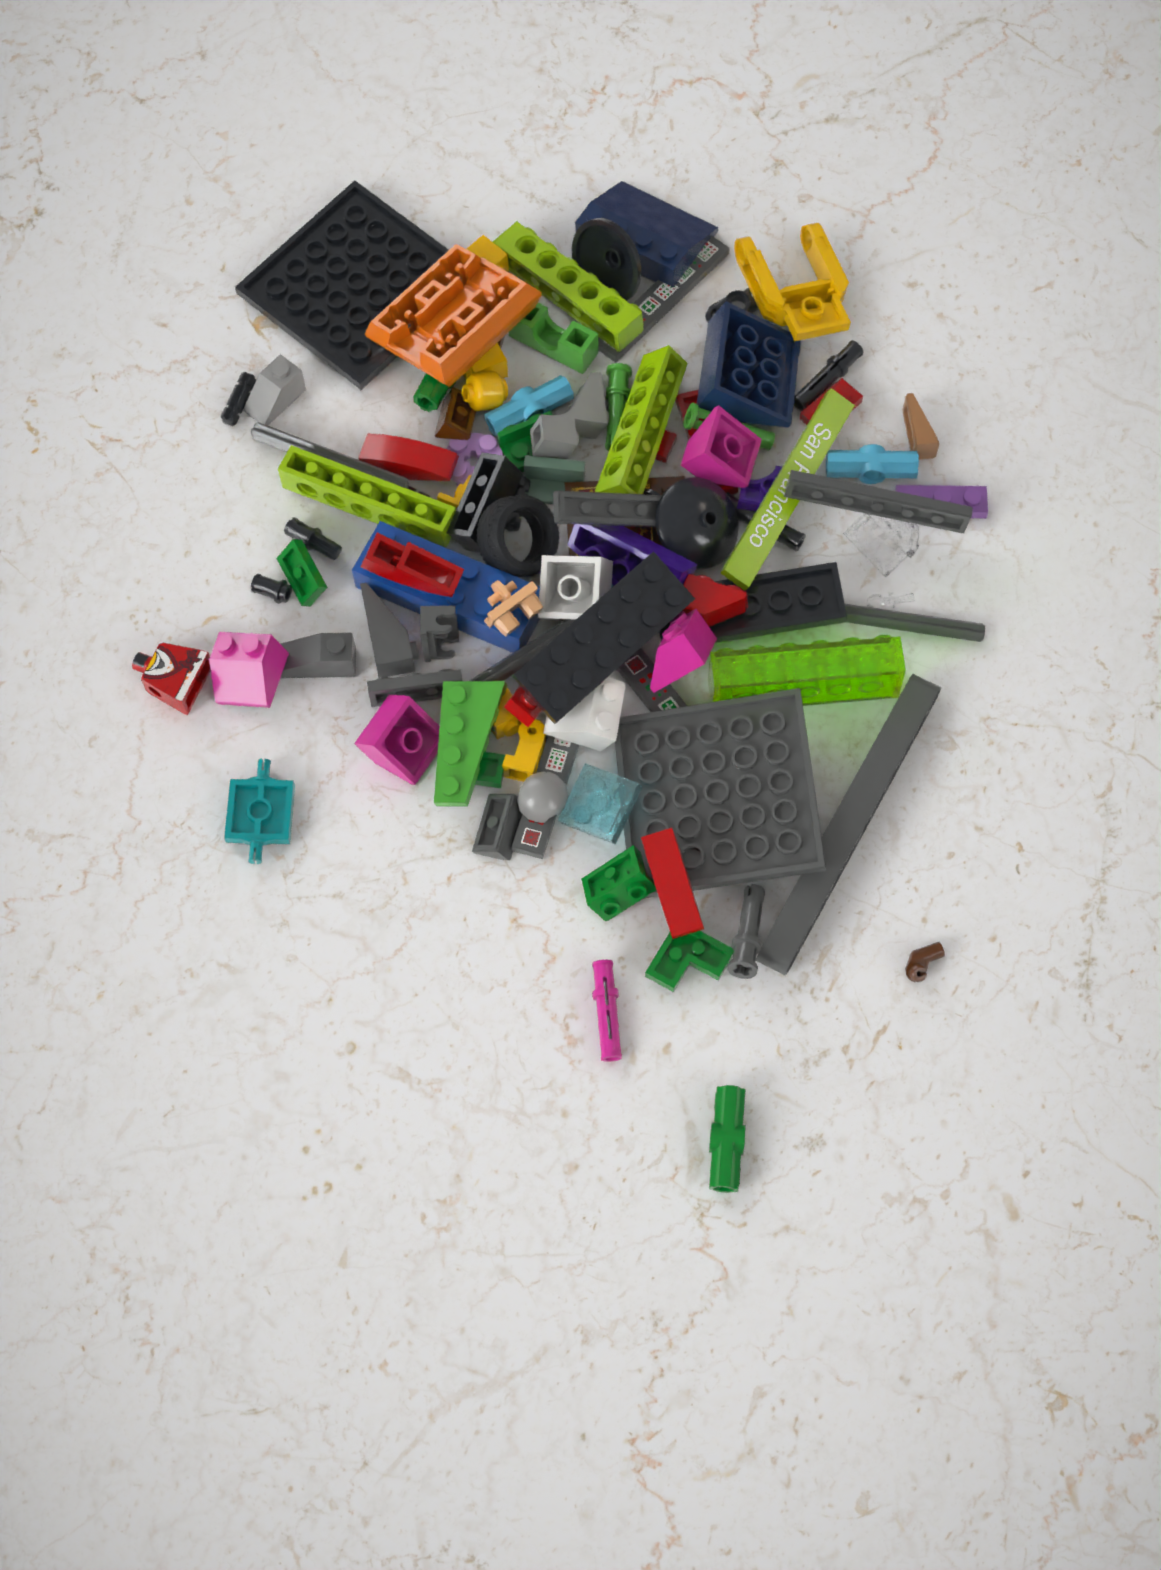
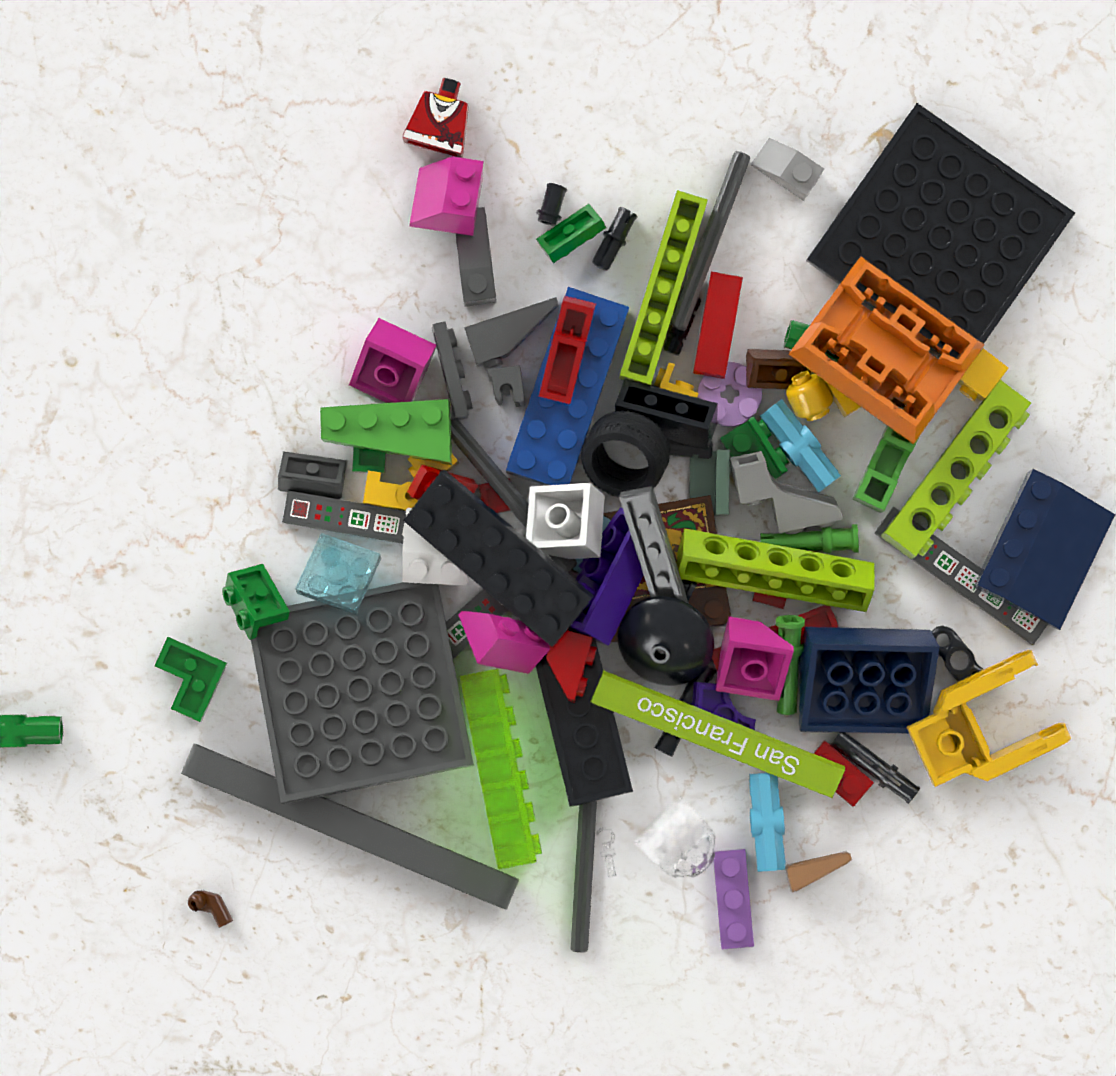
camera: 85 degrees right, 20 degrees up
(238, 399) = (779, 130): black axle -> none
(259, 811) = (299, 234): teal plate -> none
(524, 599) = (520, 449): light nougat hips -> none
(542, 796) = (340, 515): light grey hair -> none
(604, 973) = (166, 596): dark pink pin -> none
(609, 254) = (983, 512): black dish -> none
(672, 883) = (252, 654): red slope -> none
(746, 942) = (203, 732): dark grey pin -> none
(878, 501) = (702, 829): dark grey tile -> none

